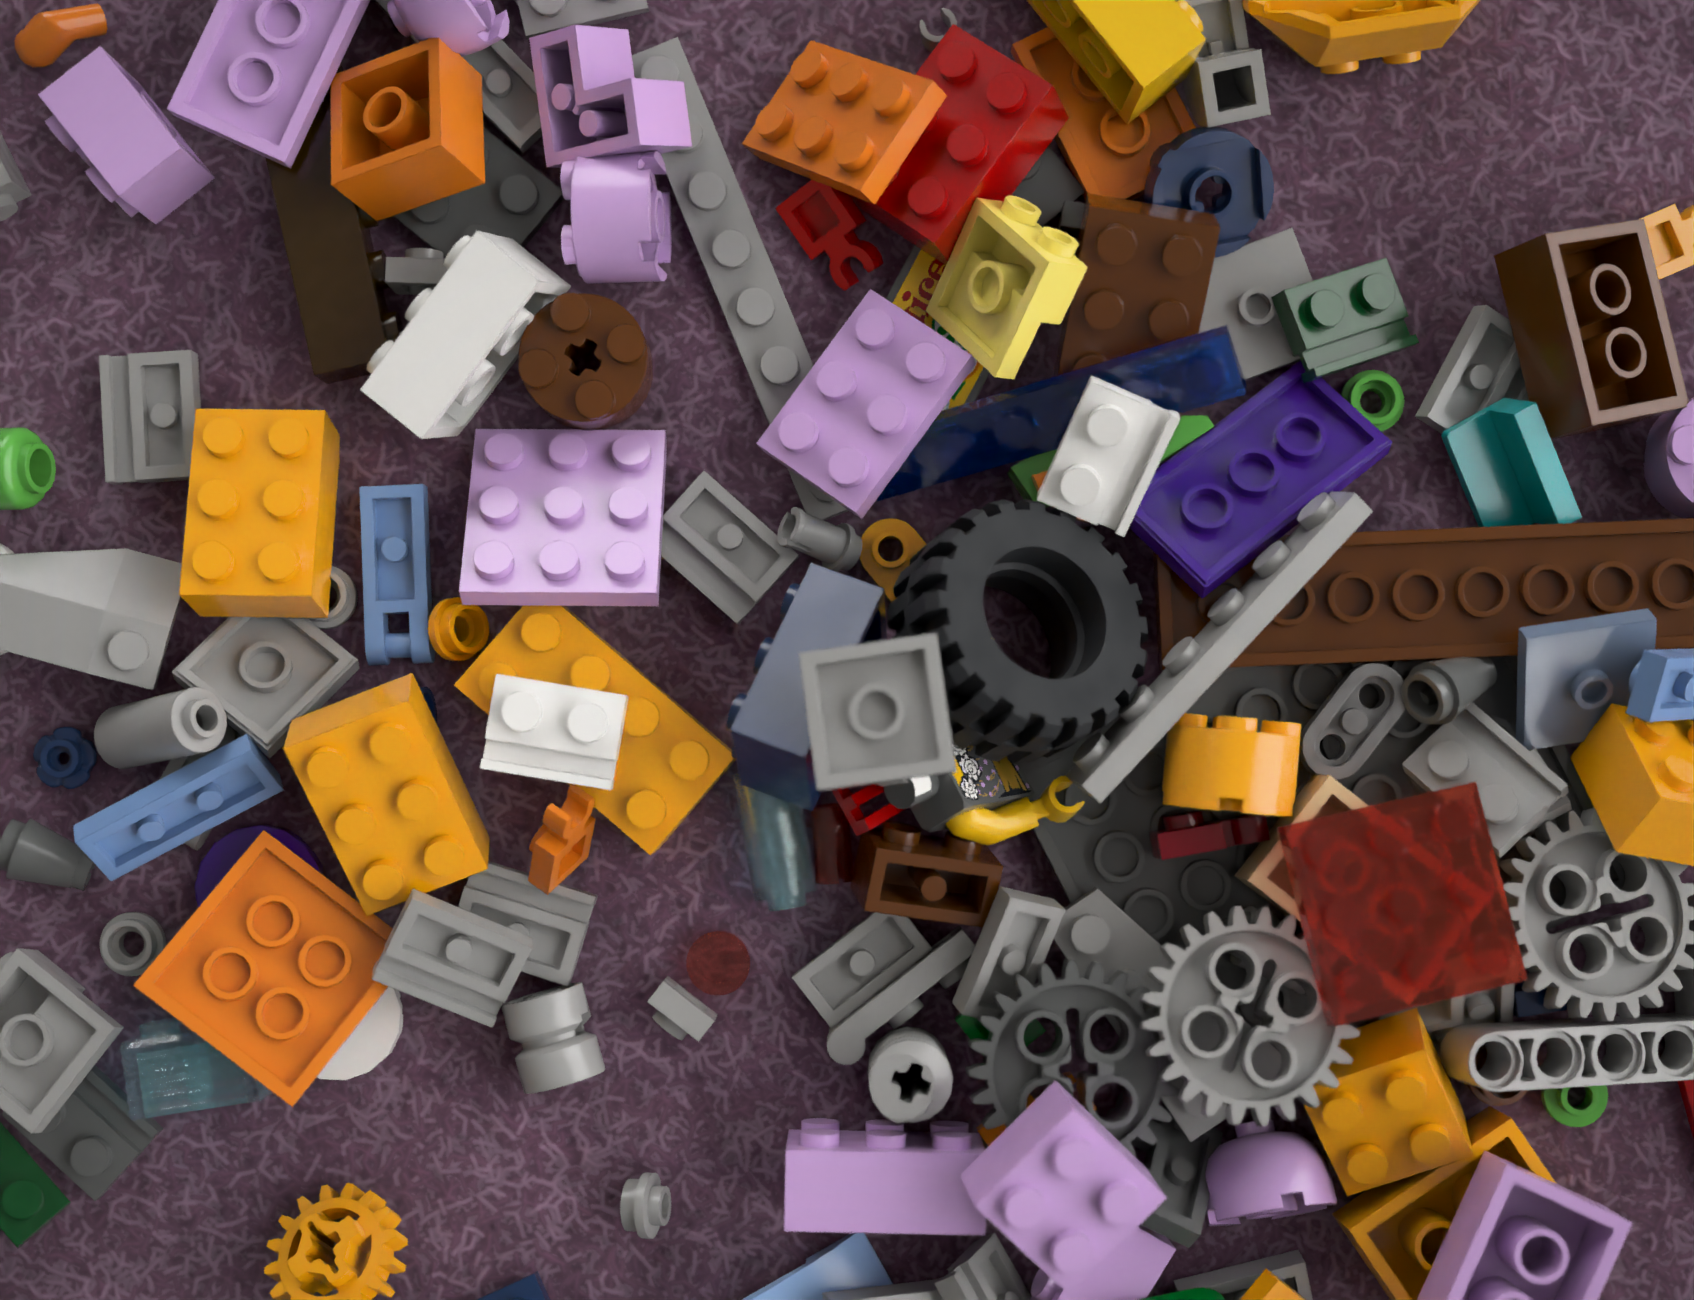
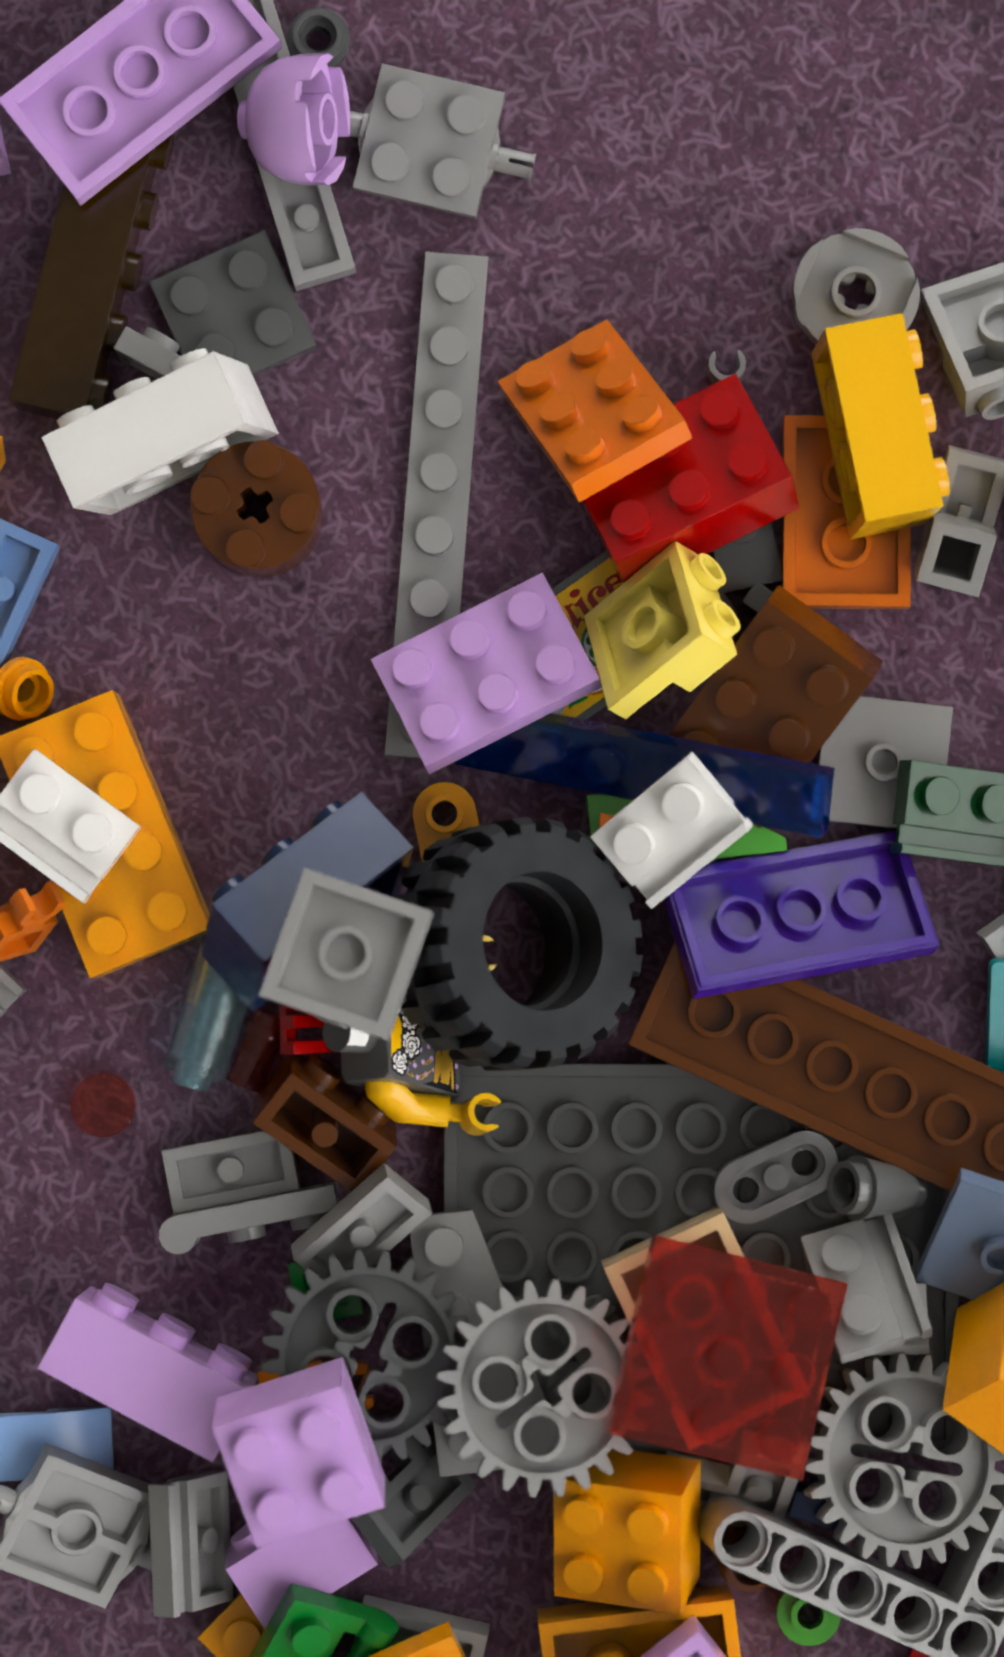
camera: 25 degrees right, 0 degrees up
(407, 129) = (201, 223): orange brick -> none
(564, 518) = (167, 638): lavender plate -> none
(594, 101) = (380, 282): lavender brick -> none
(617, 218) = (349, 394): lavender brick -> none
(680, 1011) = (47, 1130): light grey plate -> none
(723, 548) = (293, 735): light grey plate -> none
(825, 222) = (536, 493): red plate -> none
(833, 545) = (396, 785): light grey pin -> none
(924, 1094) = (209, 1267): light grey piece -> none
(1190, 835) = (579, 1204): dark red plate -> none
(1228, 160) = (922, 616): dark blue plate -> none
(1232, 765) = (643, 1159): light orange brick -> none
(1233, 625) = (710, 1035): light grey plate -> none
(1266, 1176) = (491, 1543): lavender cylinder -> none
(1387, 389) = (965, 898): bright green plate -> none

